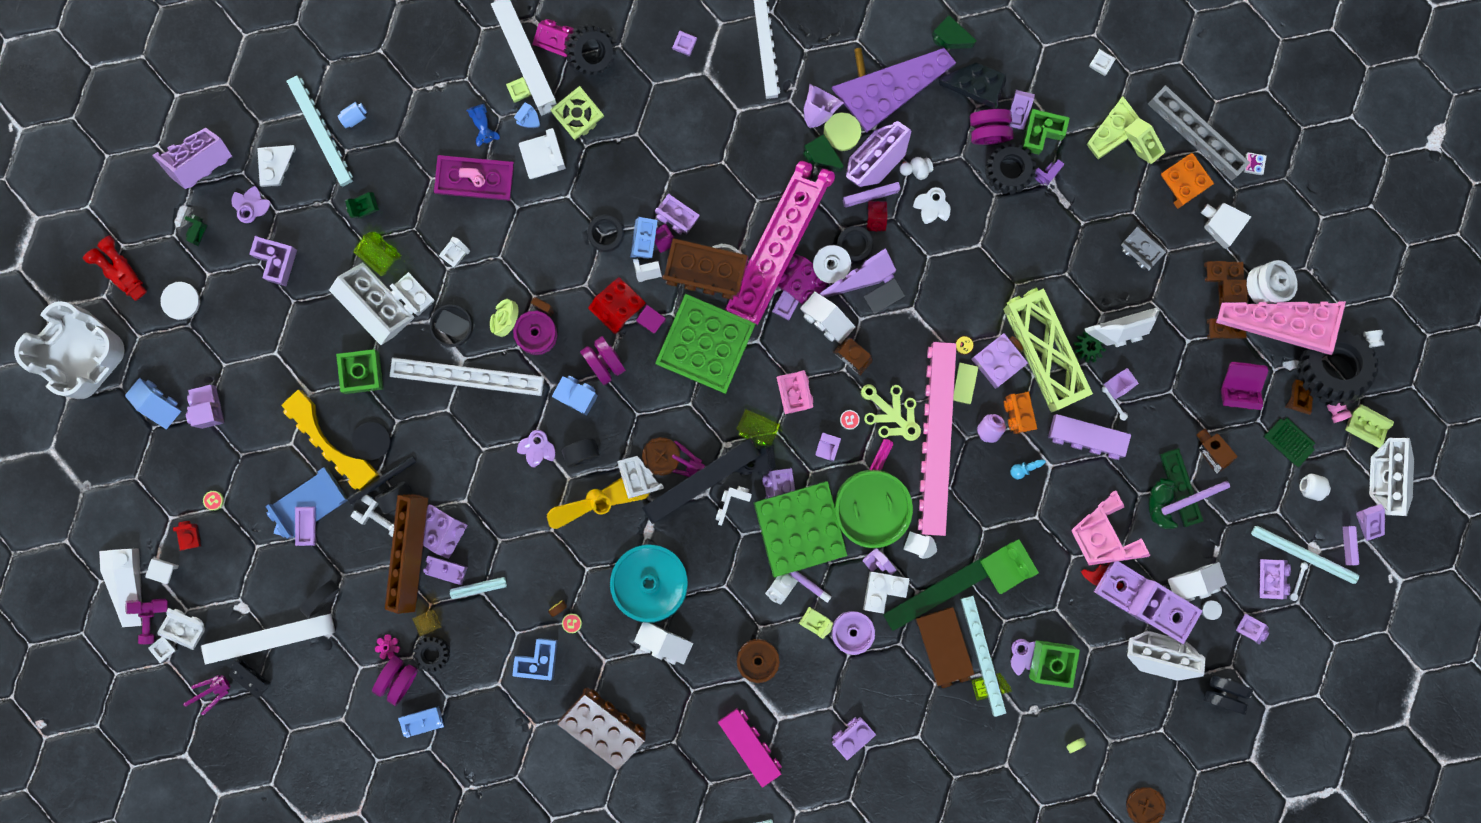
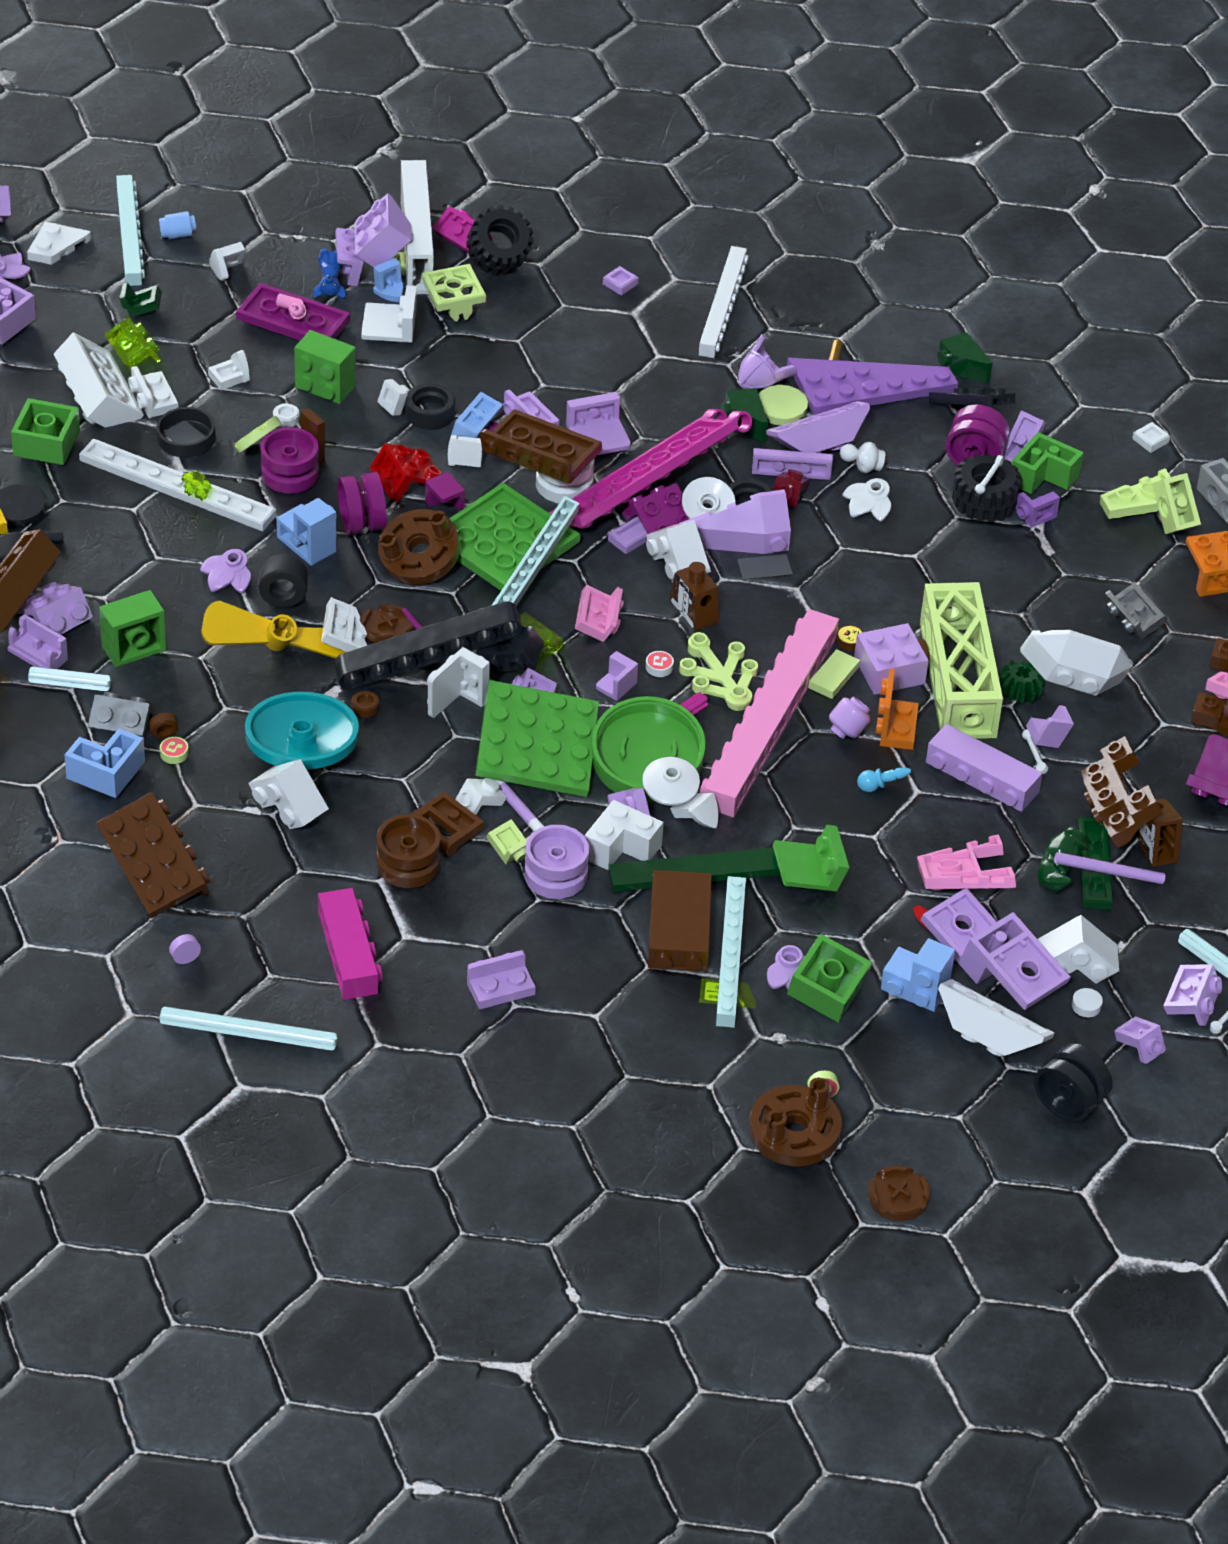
camera: 20 degrees right, 40 degrees down
(401, 137) = (225, 258): none -> white tile
(483, 382) = (196, 484): none -> clear neon green plant
(488, 102) = (346, 255): none -> lavender bracket
(502, 538) = (132, 628): none -> bright green brick
(508, 88) = (381, 232): none -> lavender slope
(510, 279) = (287, 414): none -> white tile
(521, 233) = (325, 366): none -> bright green brick
(525, 608) = (113, 713): none -> flat silver bracket
(578, 235) = (393, 397): none -> white tile
(644, 393) = (416, 528): none -> reddish brown piece
(652, 791) = (185, 949): none -> lavender tile
(675, 532) = (365, 704): none -> reddish brown tile
(728, 211) = (598, 419): none -> lavender bracket
(737, 375) = (539, 552): none -> light aqua piece
(772, 614) = (454, 819): none -> reddish brown plate
(892, 528) = (668, 789): none -> white dish
(1012, 185) = (980, 488): none -> white hinge
(1064, 800) = (800, 1106): none -> reddish brown piece
(1111, 638) = (920, 975): none -> light blue brick
(1181, 439) = (1113, 803): none -> reddish brown bracket

